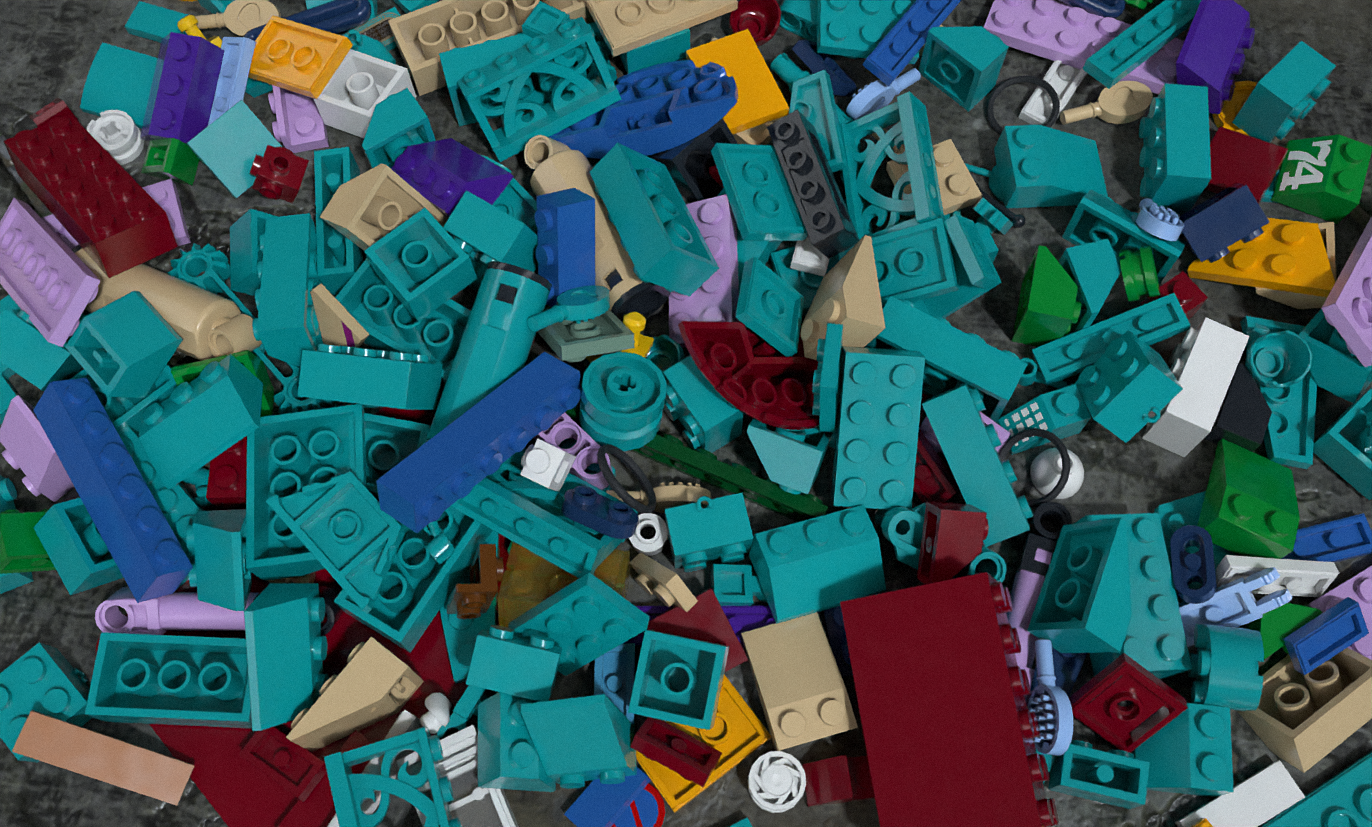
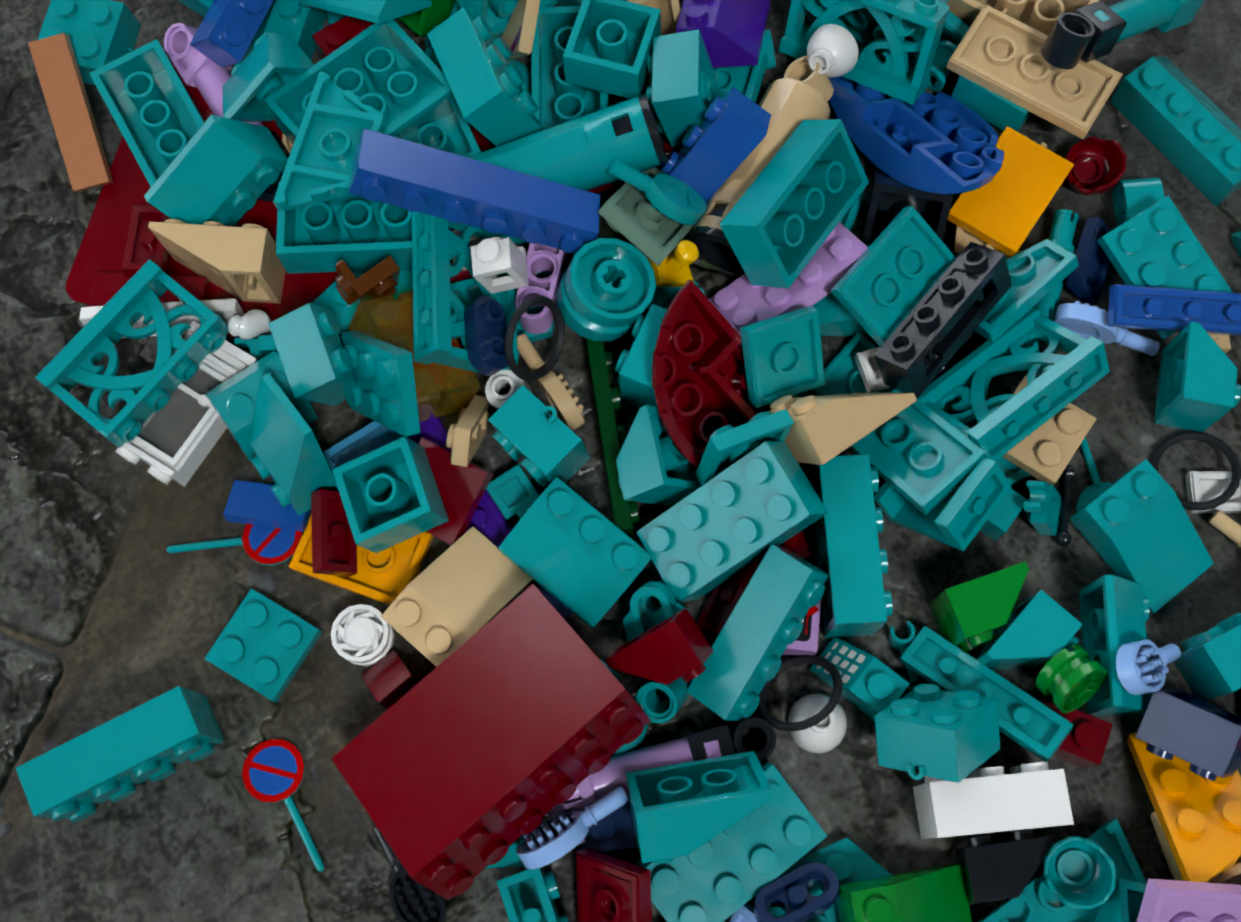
camera: 60 degrees right, 5 degrees up
(440, 546) = (373, 229): teal hand -> none
(538, 119) = (833, 49): none -> white brick

